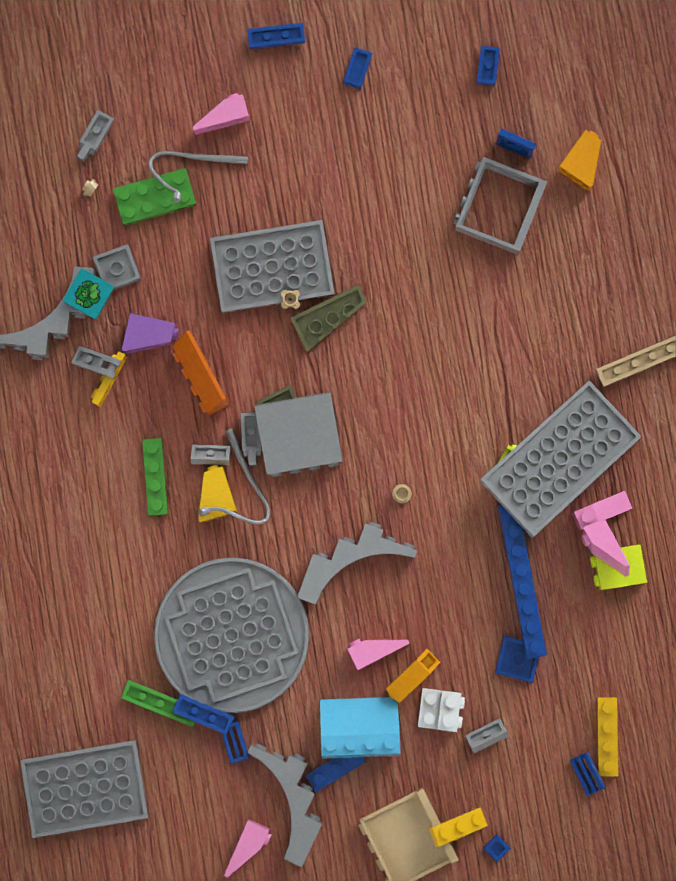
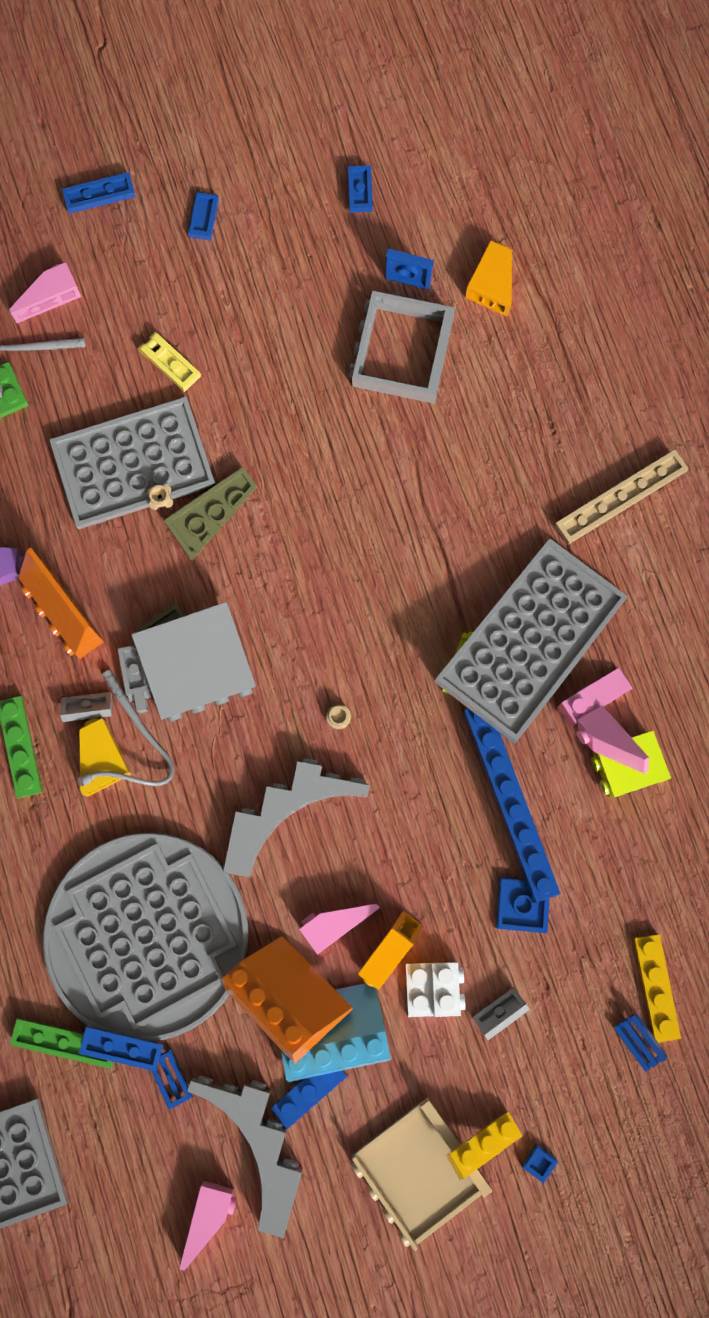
camera: 15 degrees left, 5 degrees down
(313, 188) = (170, 362): none -> light yellow plate
(330, 697) = (286, 997): none -> orange slope

